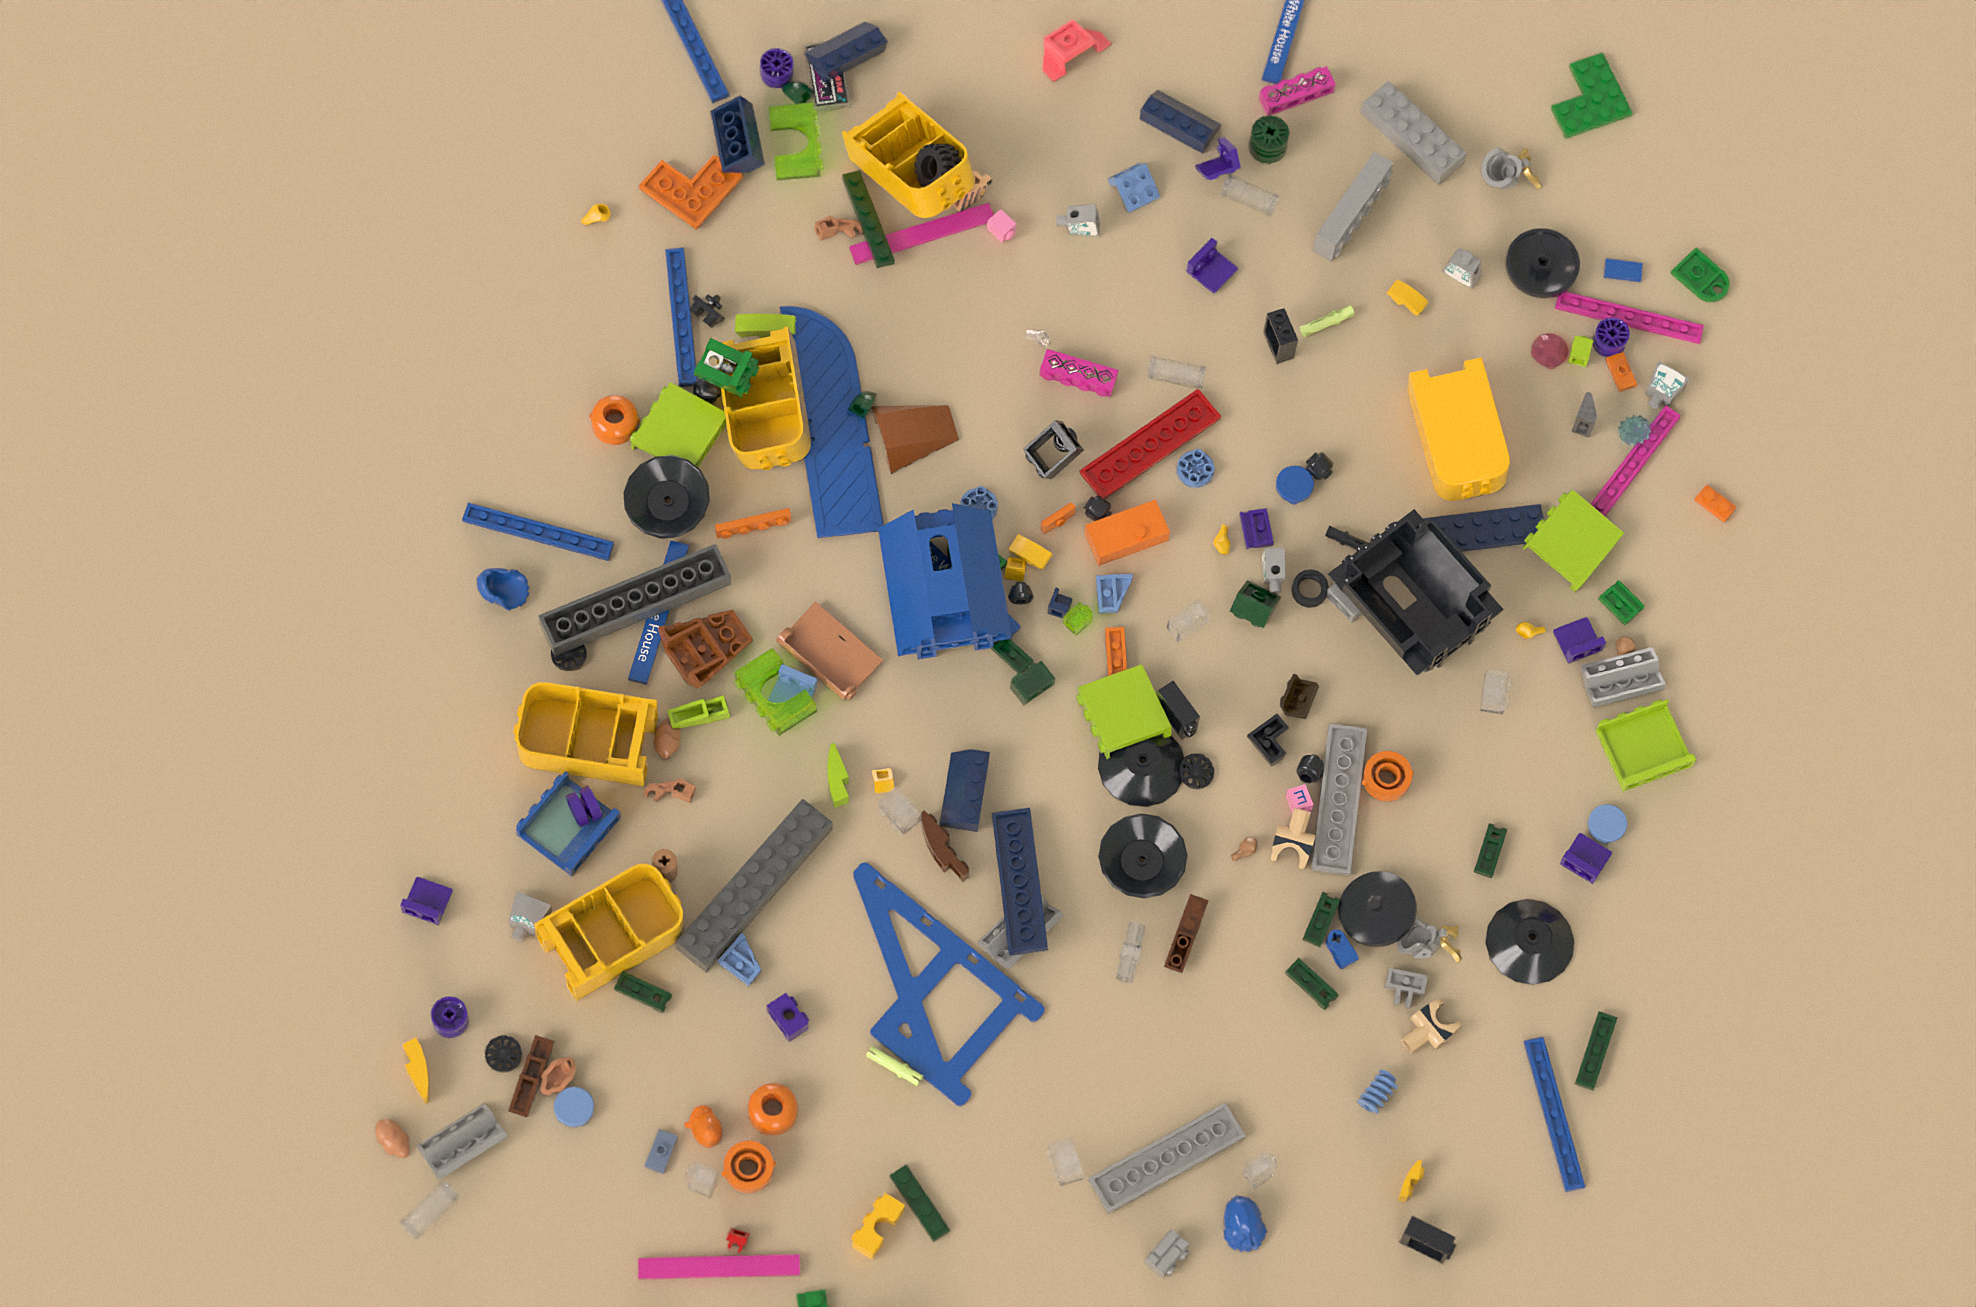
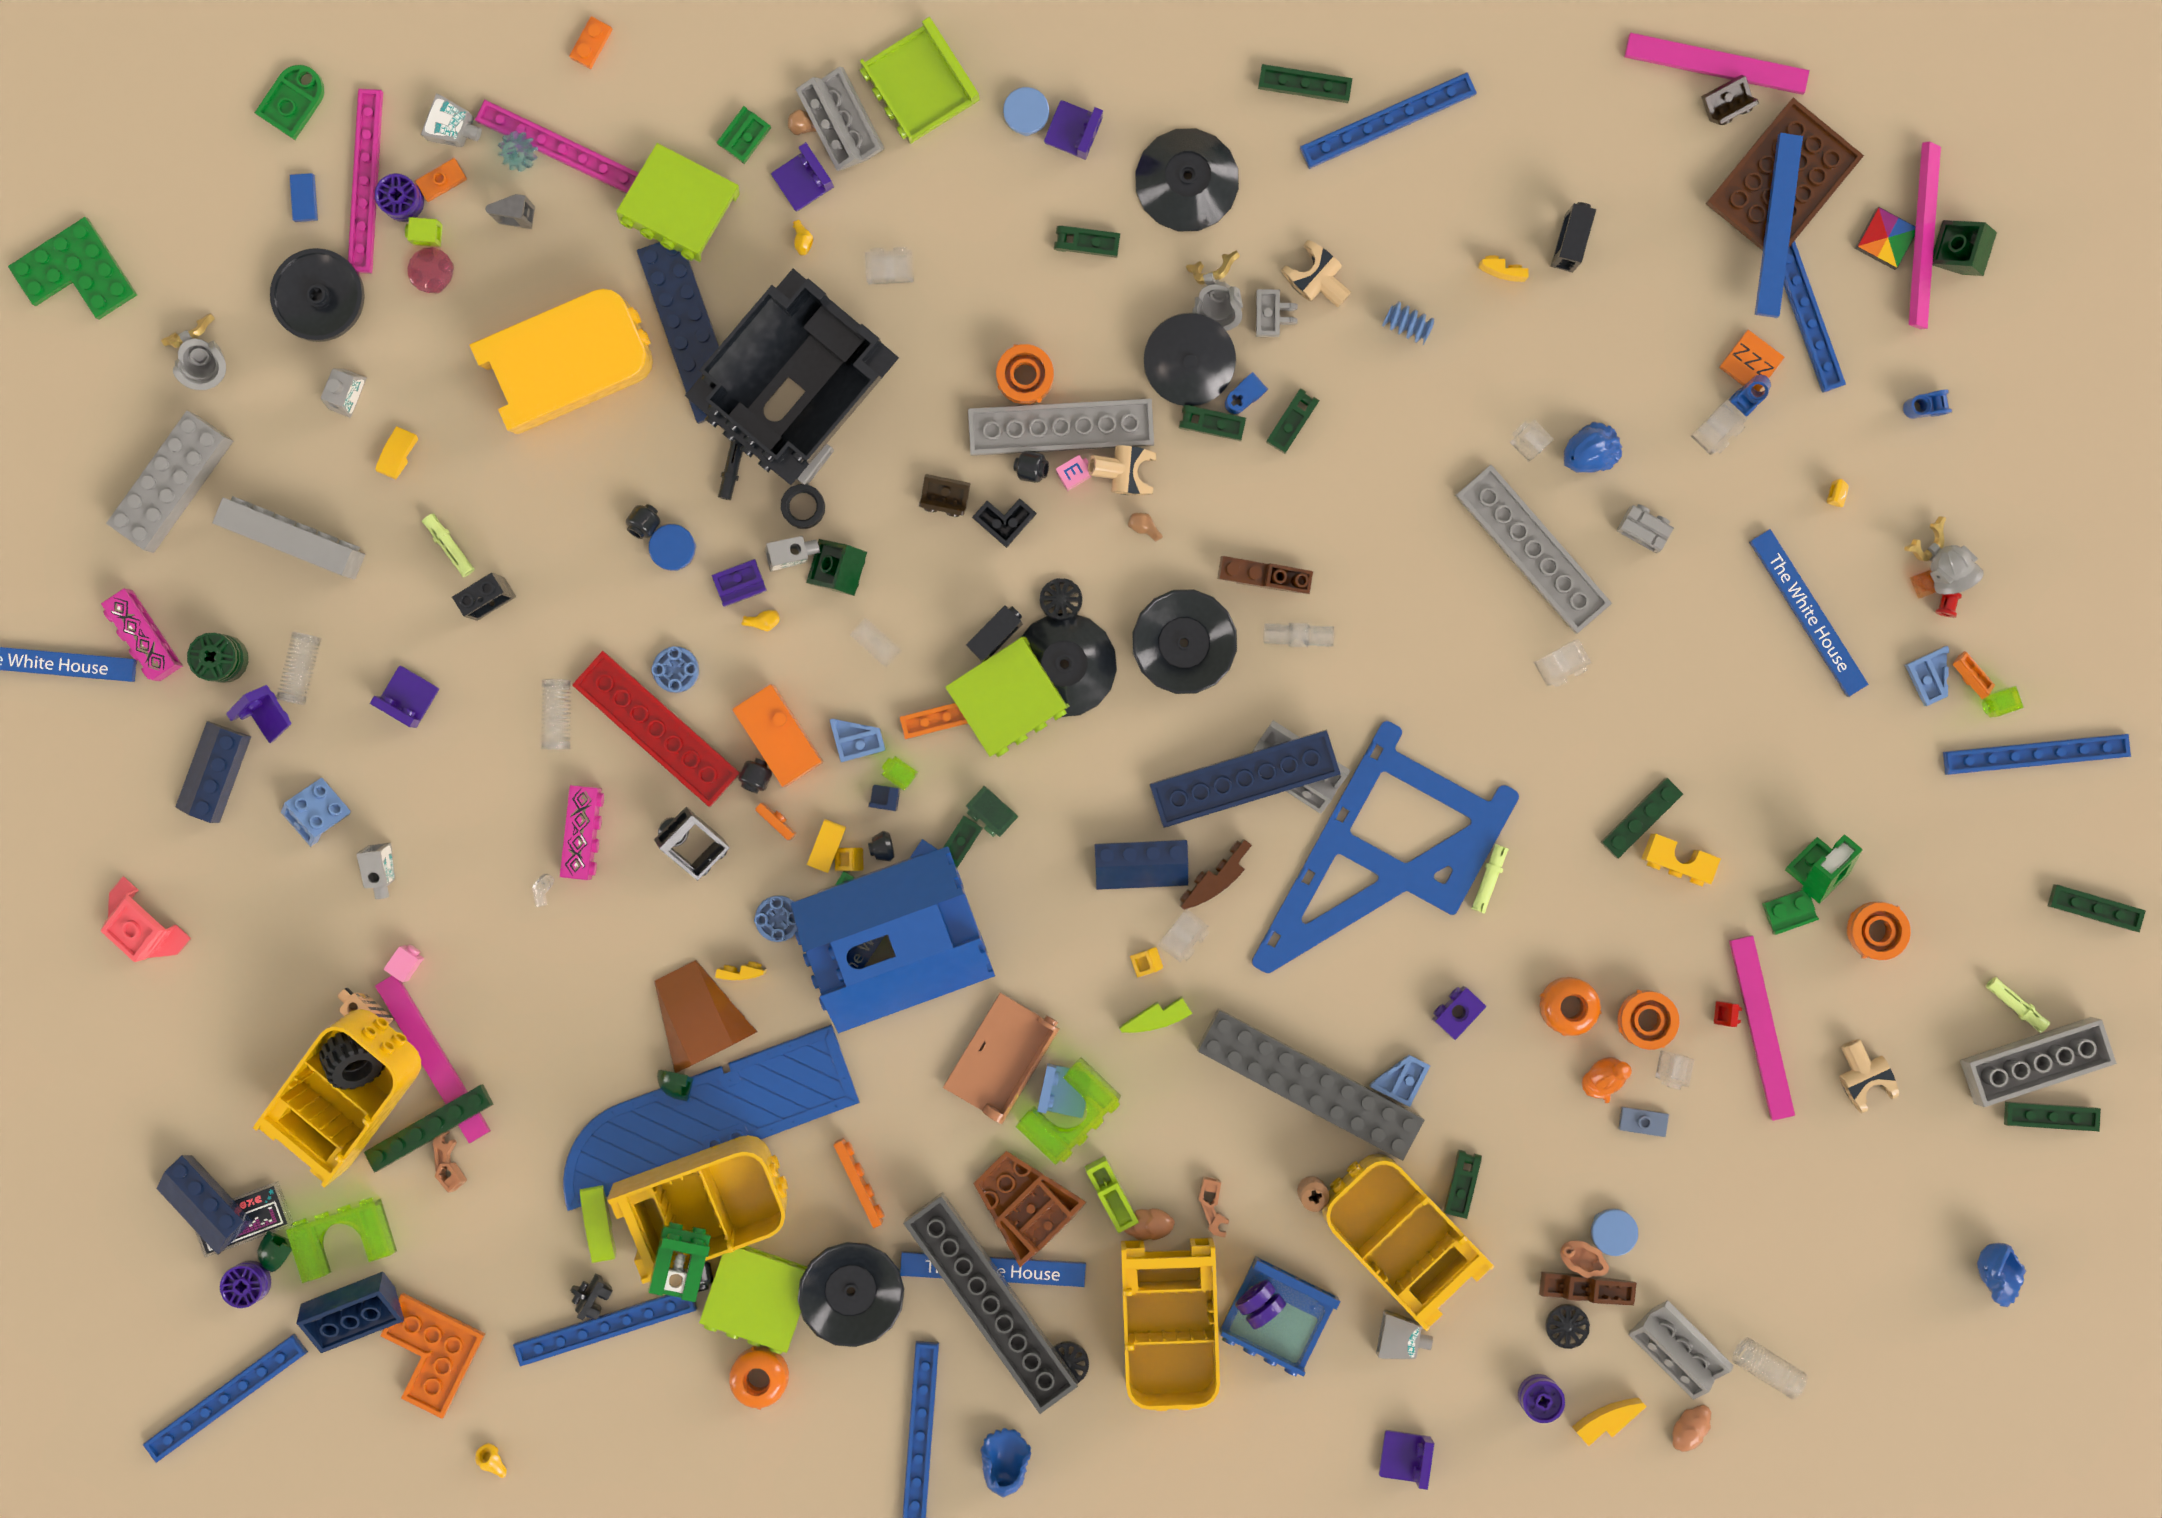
camera: 95 degrees left, 20 degrees up
(941, 468) = (747, 971): none -> yellow slope

